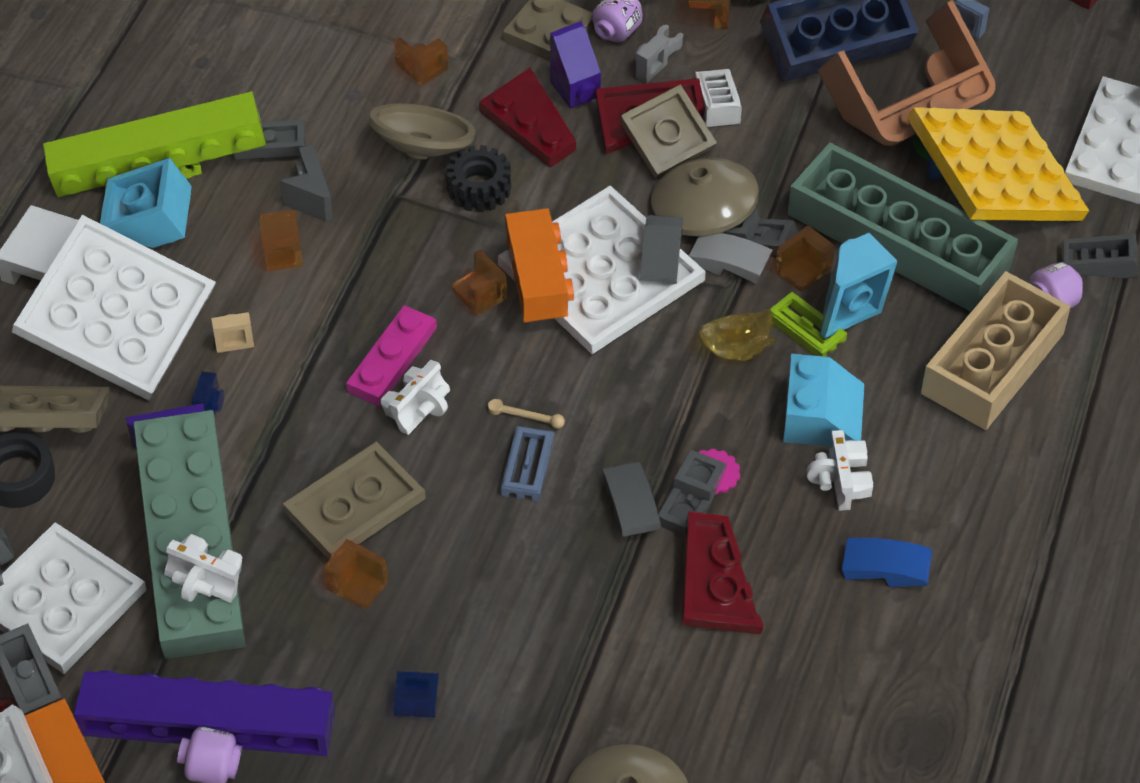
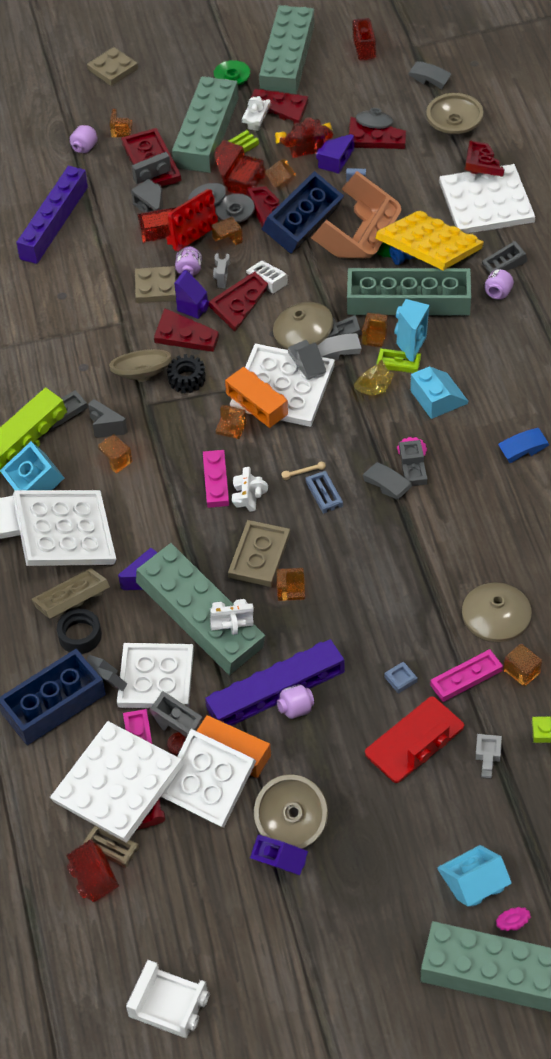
camera: 30 degrees left, 0 degrees up
(208, 392) = (144, 542): clear blue plate -> none
(232, 332) = (130, 509): tan plate -> none
(416, 694) = (364, 620): clear blue plate -> none
(422, 62) = (106, 334): clear orange panel -> none
(667, 131) = (261, 303): dark tan plate -> none
(713, 578) = (455, 496): dark red wing -> none
(836, 469) = (469, 416): white hips -> none
(995, 350) = (497, 325): tan brick -> none

